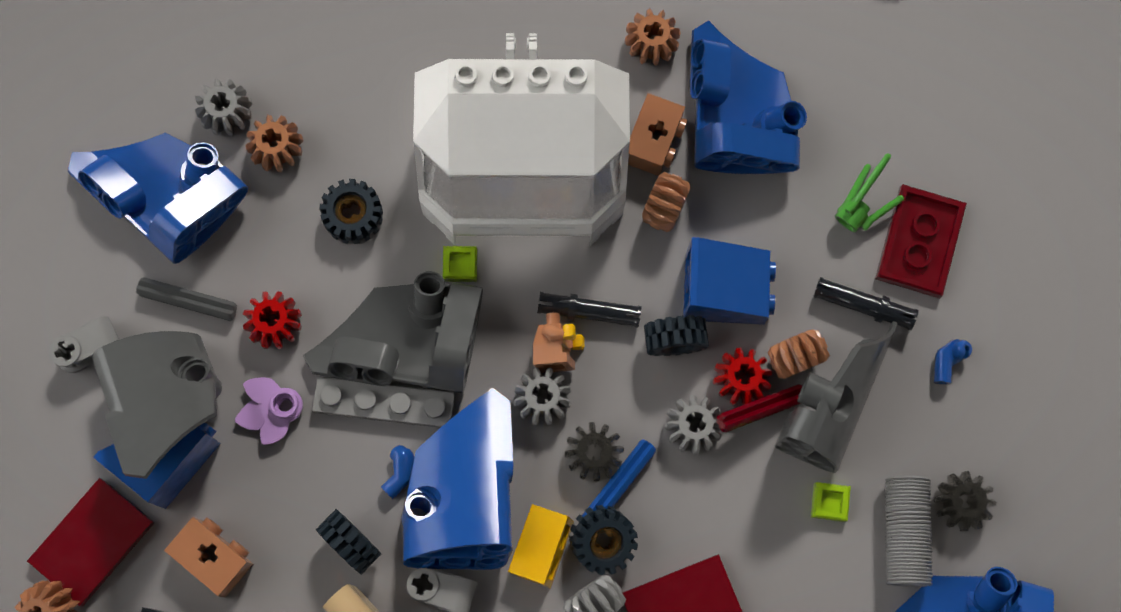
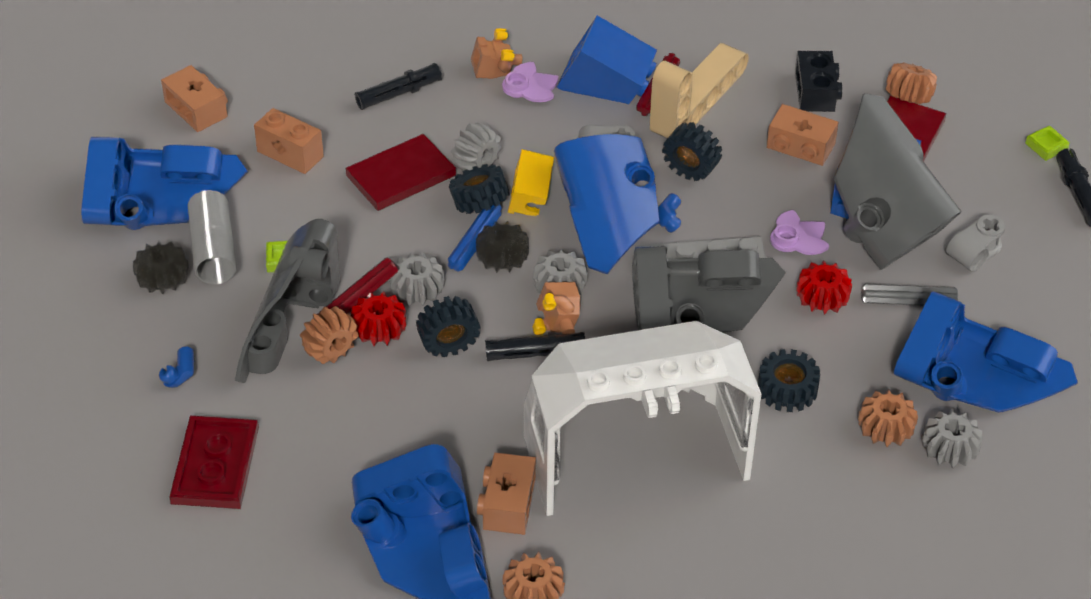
camera: 170 degrees right, 30 degrees down
(665, 201) = (482, 428): nougat gear -> none
(728, 282) = (408, 376): blue slope -> none
(854, 211) = (285, 465): bright green plant -> none
(865, 303) = (261, 394): black pin -> none

